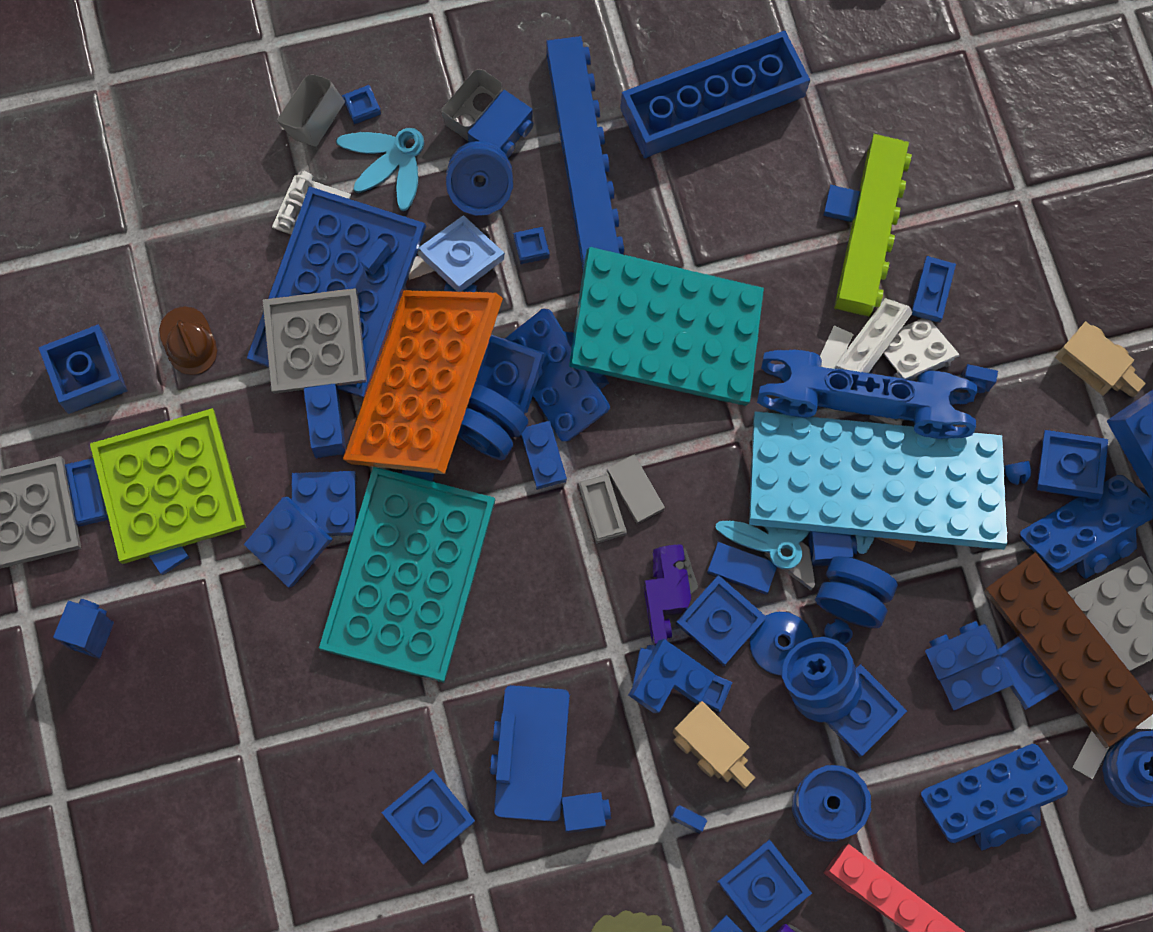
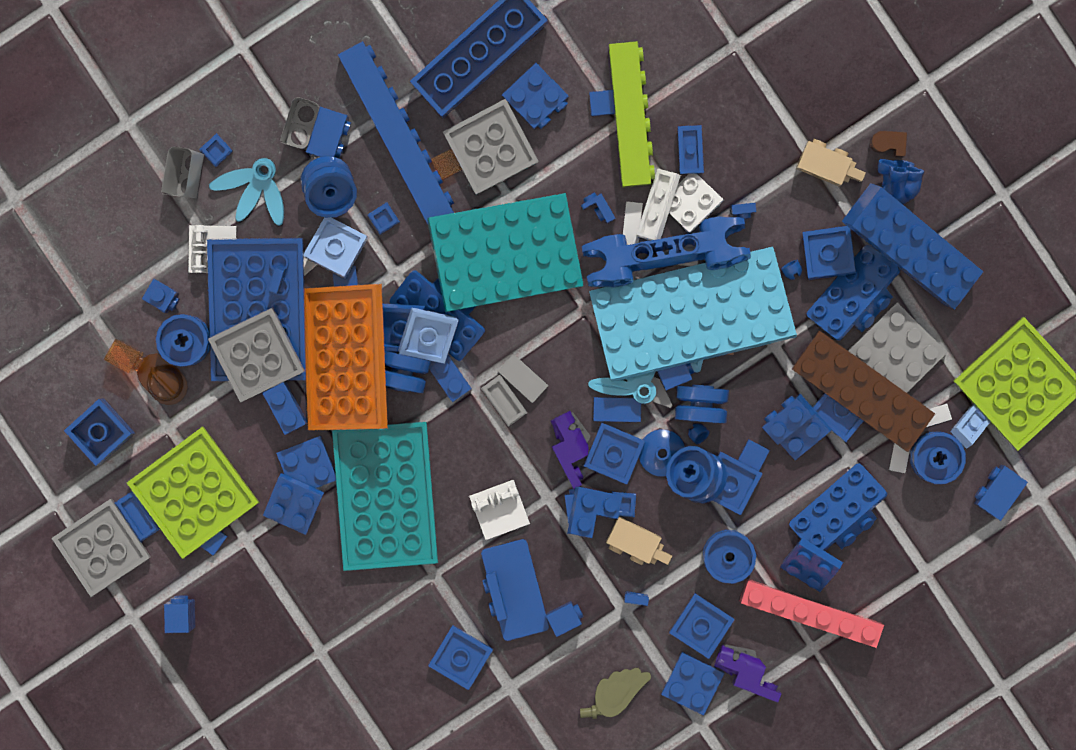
camera: 15 degrees left, 15 degrees up
(152, 293) = (124, 356): none -> clear orange brick
(227, 243) = (161, 296): none -> blue bracket
(231, 297) = (170, 335): none -> blue wheel
(538, 386) = (428, 335): none -> light blue plate
(548, 642) = (499, 509): none -> white hinge
(630, 210) = (446, 164): none -> clear orange tile
(690, 206) = (490, 146): none -> light grey plate
(764, 170) = (536, 97): none -> blue plate
(803, 316) = (602, 210): none -> blue bracket
(902, 684) = (753, 455): none -> blue tile
(938, 853) = (811, 564): none -> blue plate

